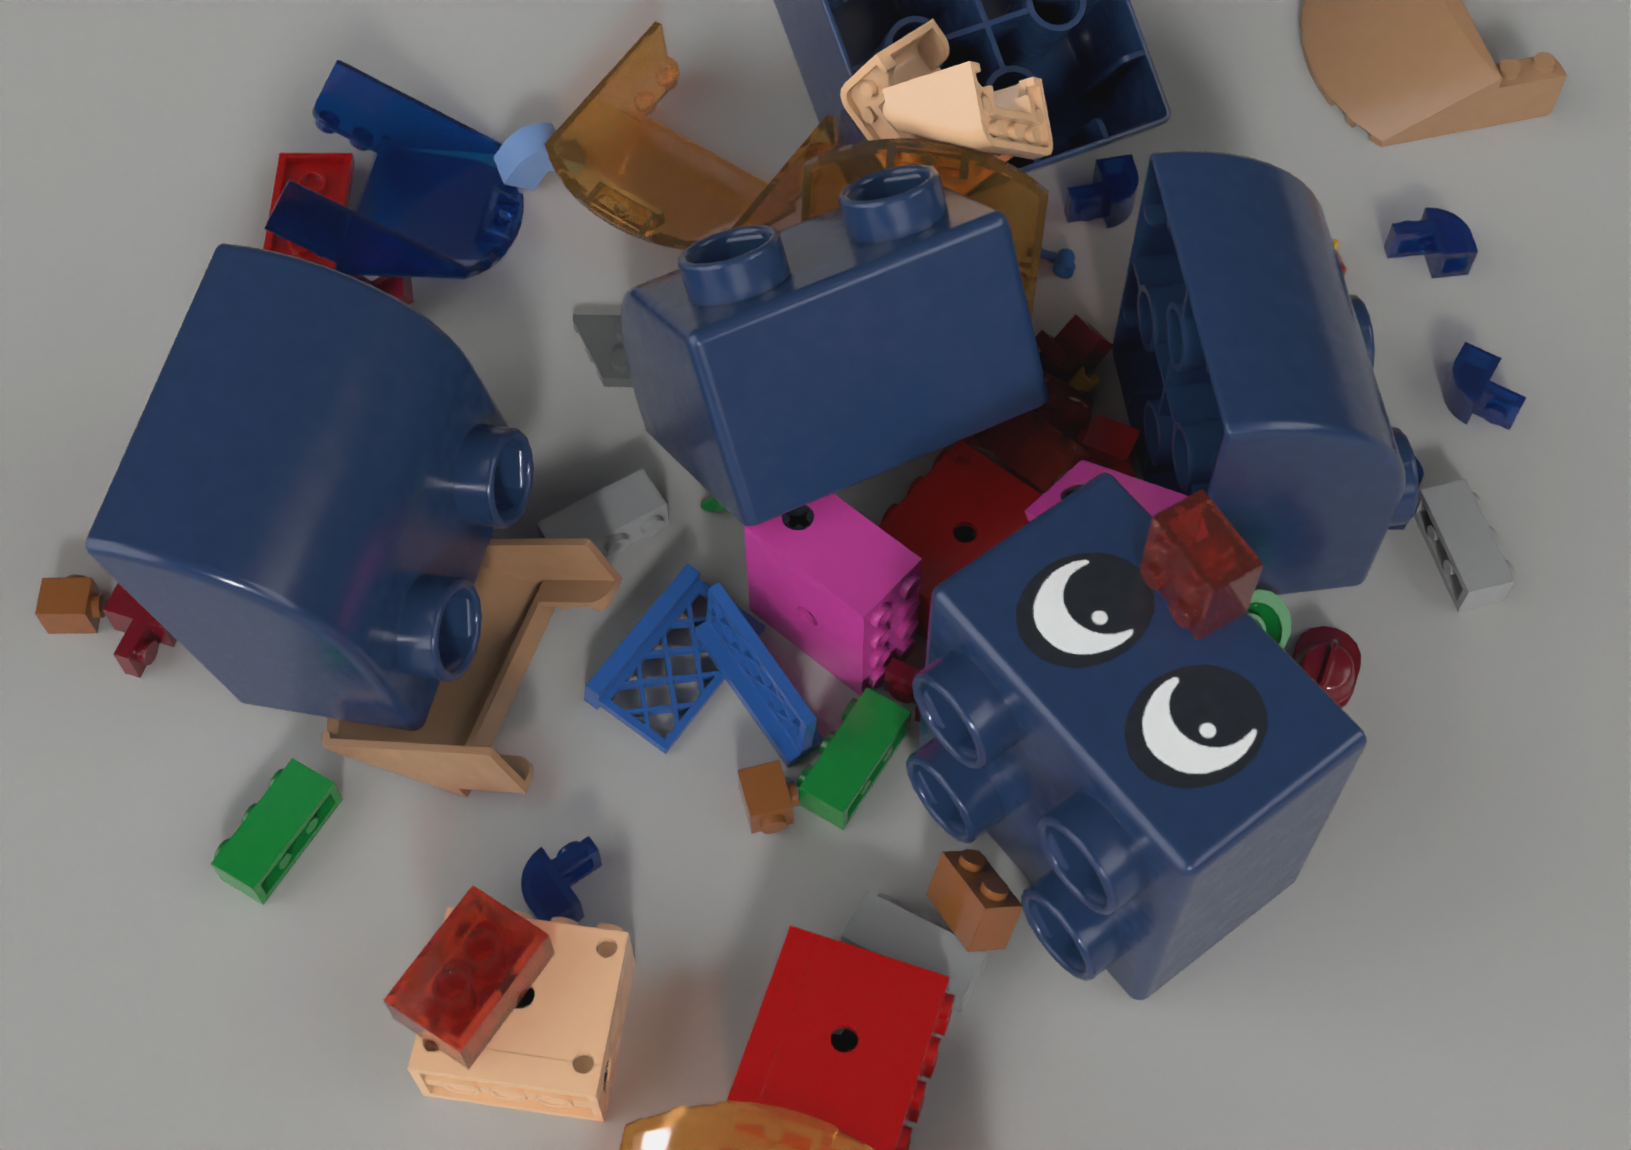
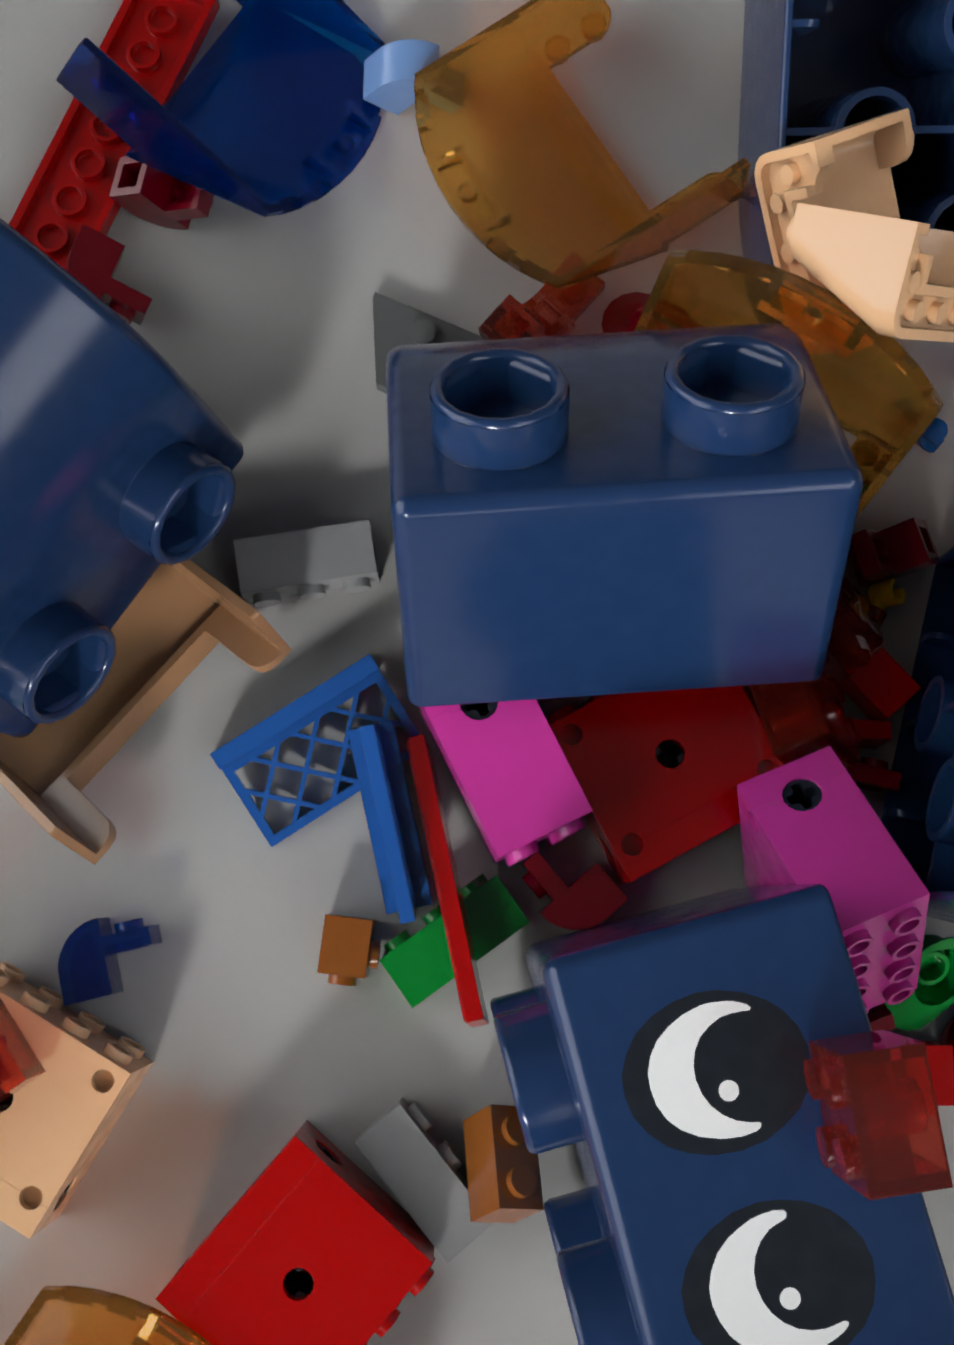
camera: 20 degrees right, 20 degrees up
(830, 700) = (447, 883): none -> red tile

